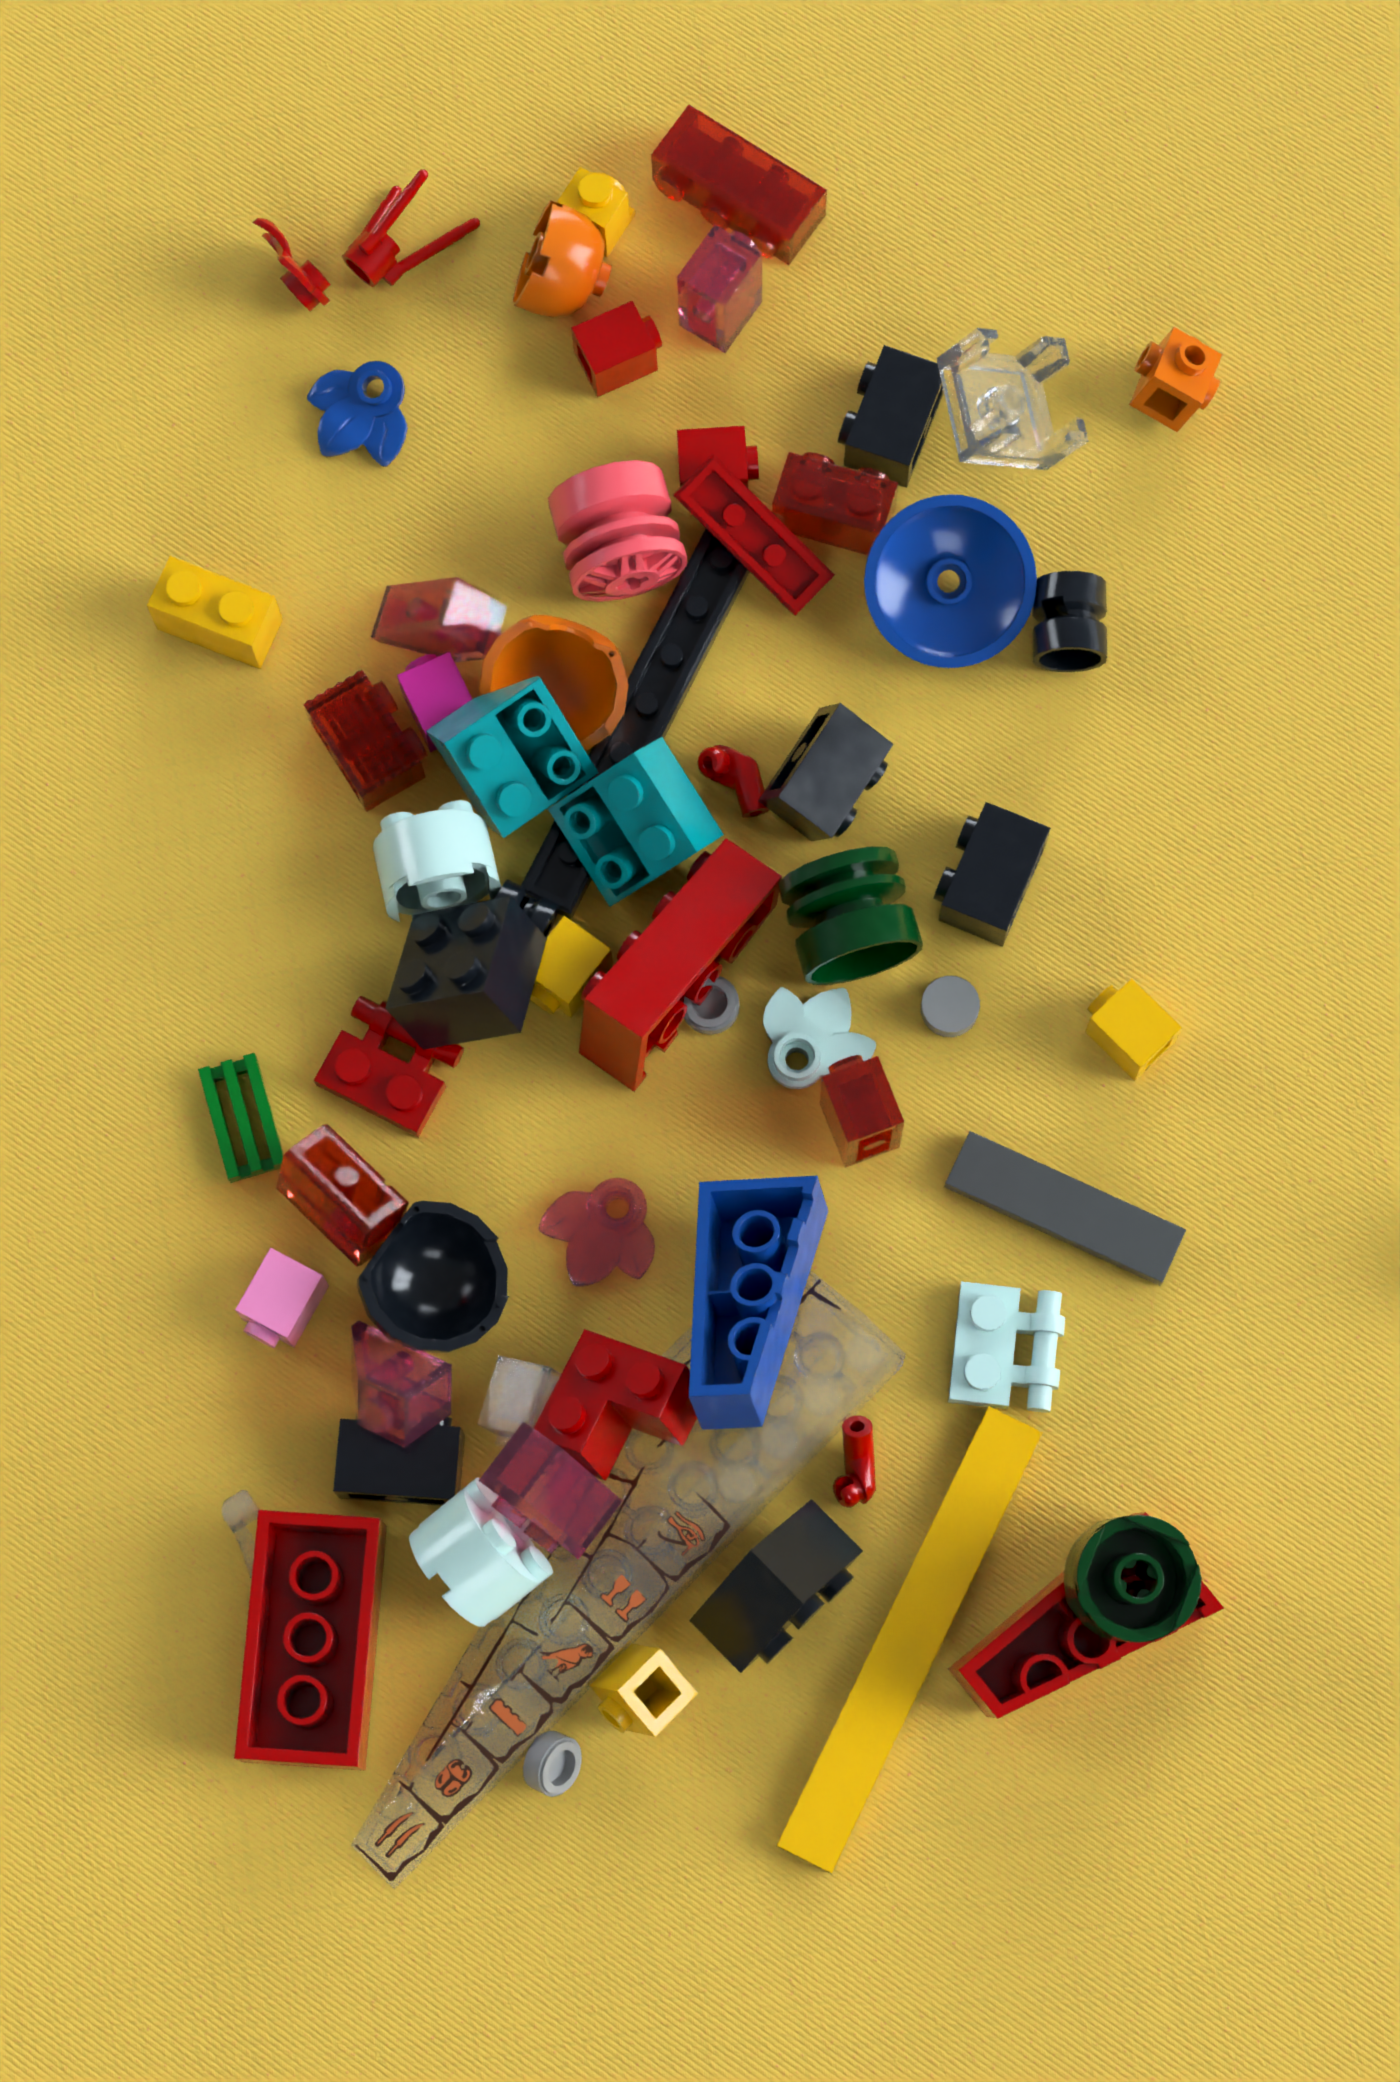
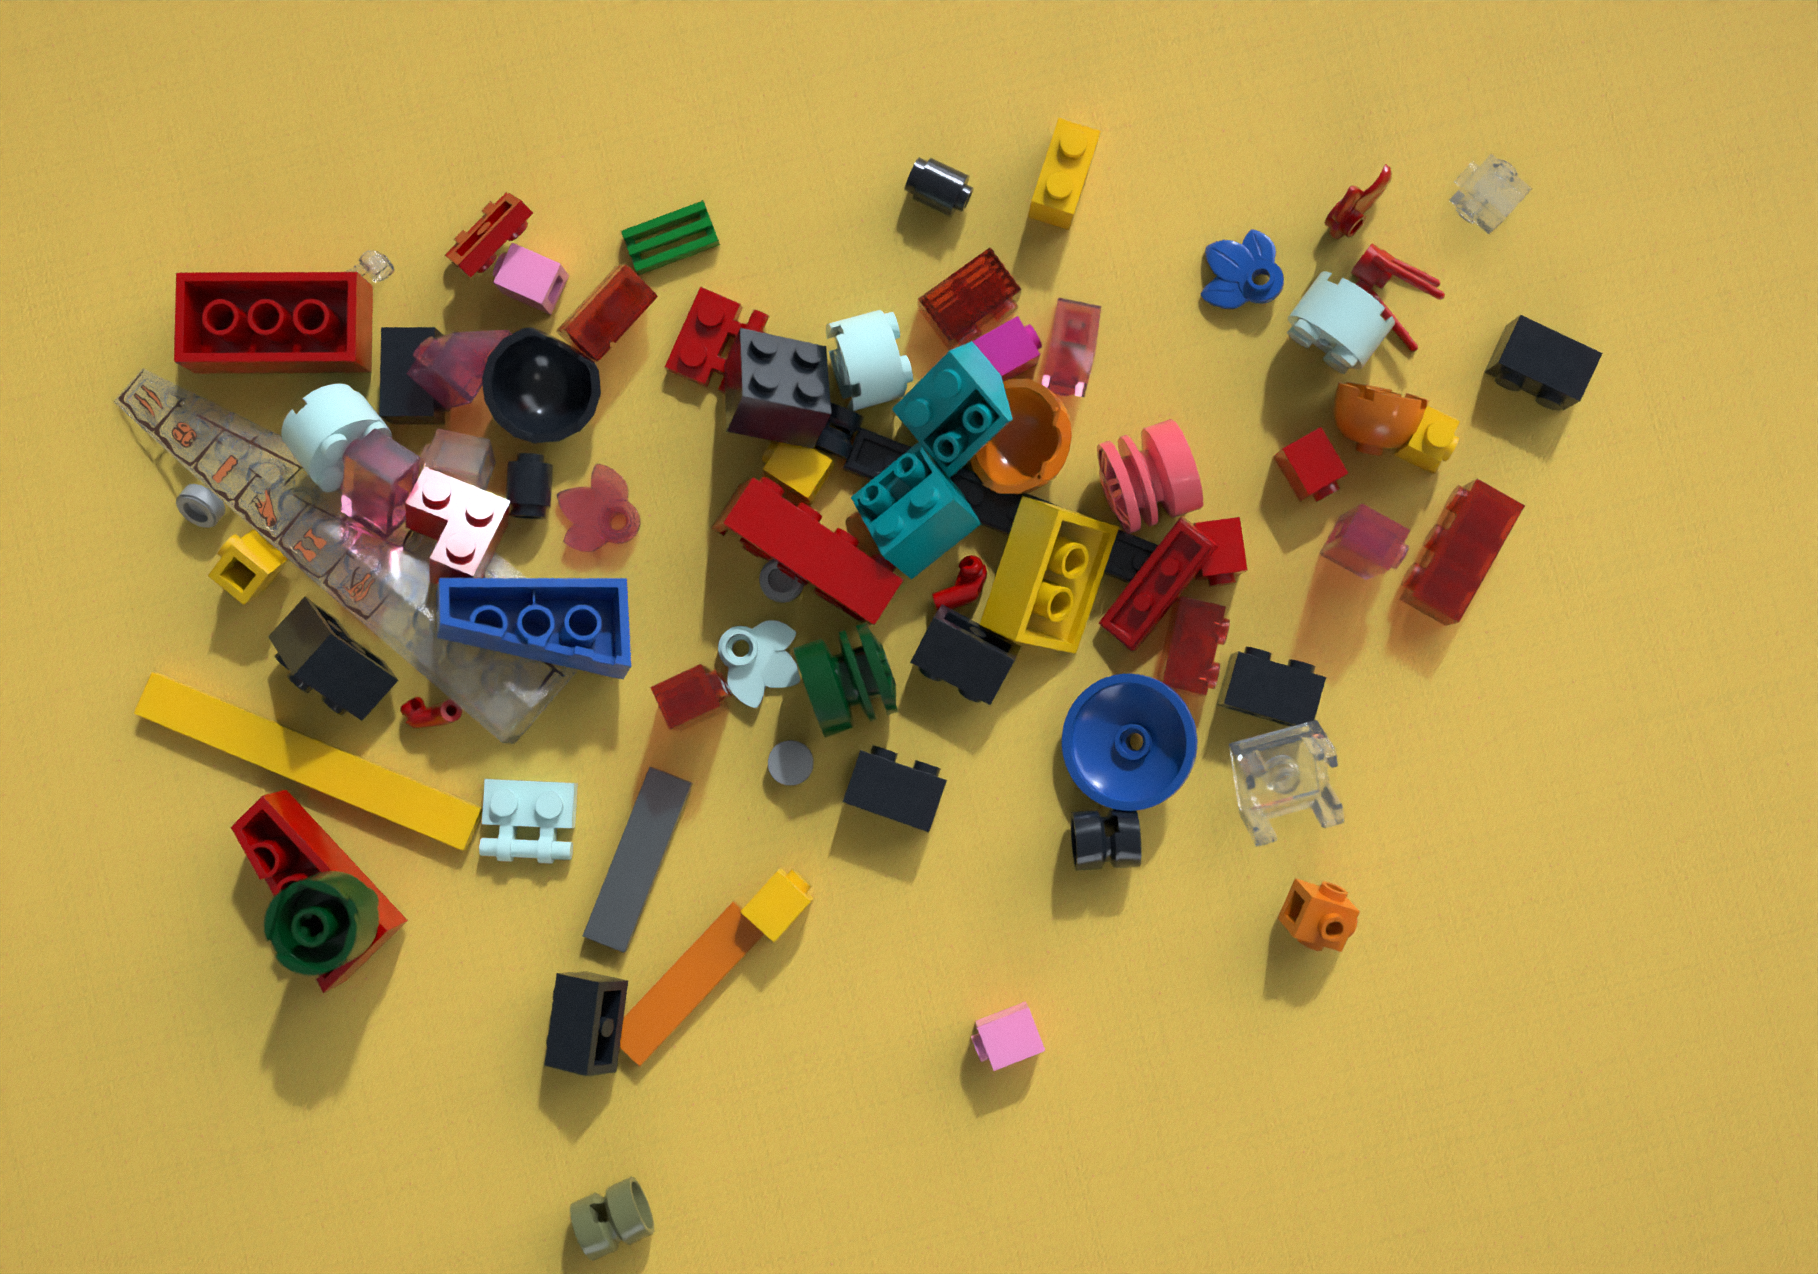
camera: 85 degrees right, 10 degrees up
(213, 768) = (939, 186): none -> black brick
(218, 1344) = (500, 222): none -> red plate
(293, 117) = (1488, 192): none -> clear brick
(442, 296) = (1340, 322): none -> light aqua brick
(512, 75) = (1542, 363): none -> black brick
(560, 1315) = (529, 486): none -> black brick
(732, 666) = (1048, 576): none -> yellow slope
(1229, 1155) = (687, 983): none -> orange tile
(1275, 1278) = (586, 1023): none -> black brick
(1311, 756) = (1007, 1036): none -> bright pink brick

